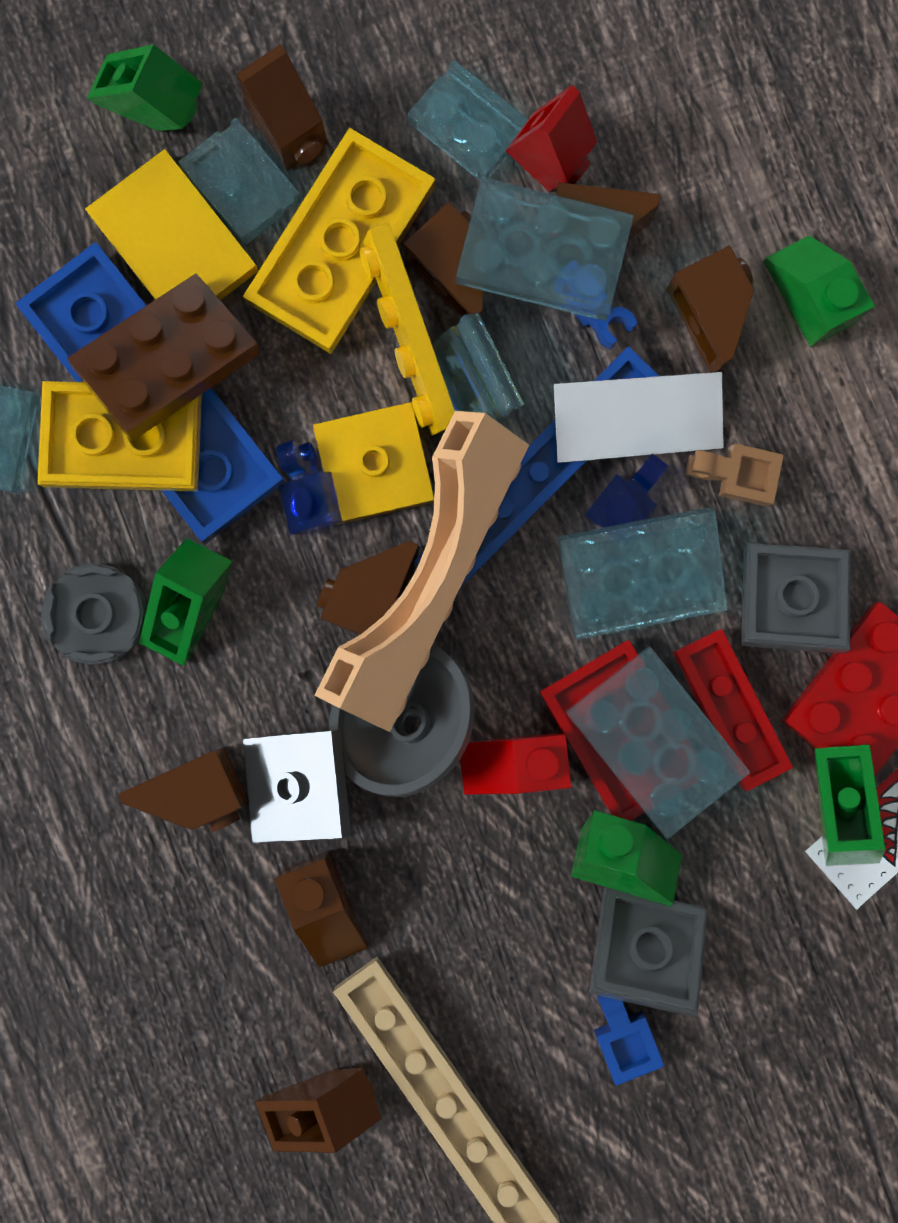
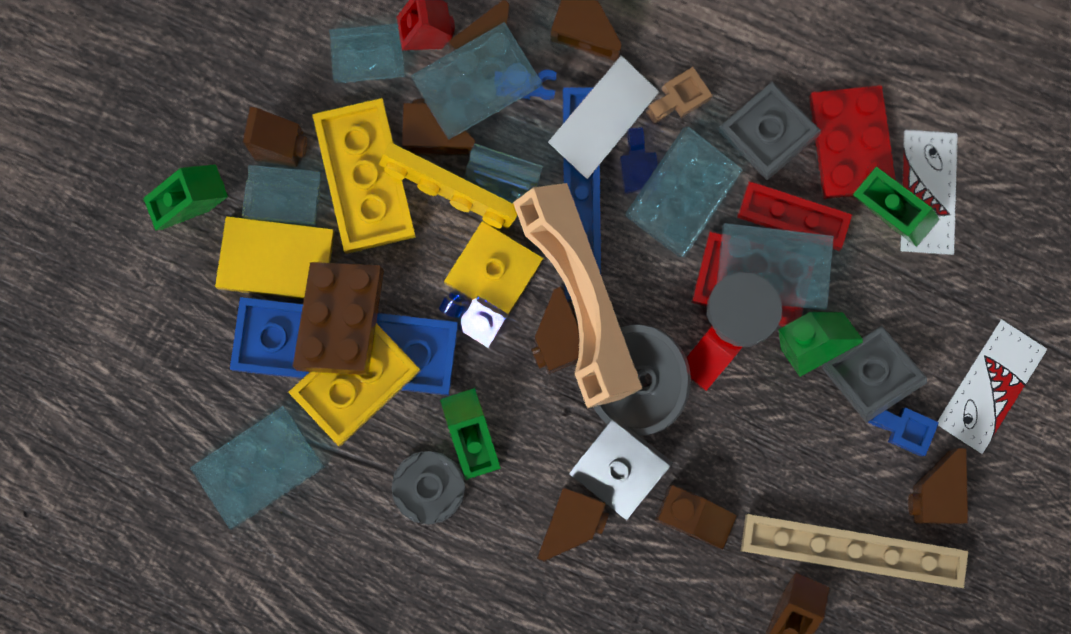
camera: 45 degrees left, 5 degrees down
(578, 756) = (744, 309): none -> dark grey tile
(596, 1138) = (942, 492): none -> reddish brown slope
(757, 1080) = (991, 386): none -> white sticker

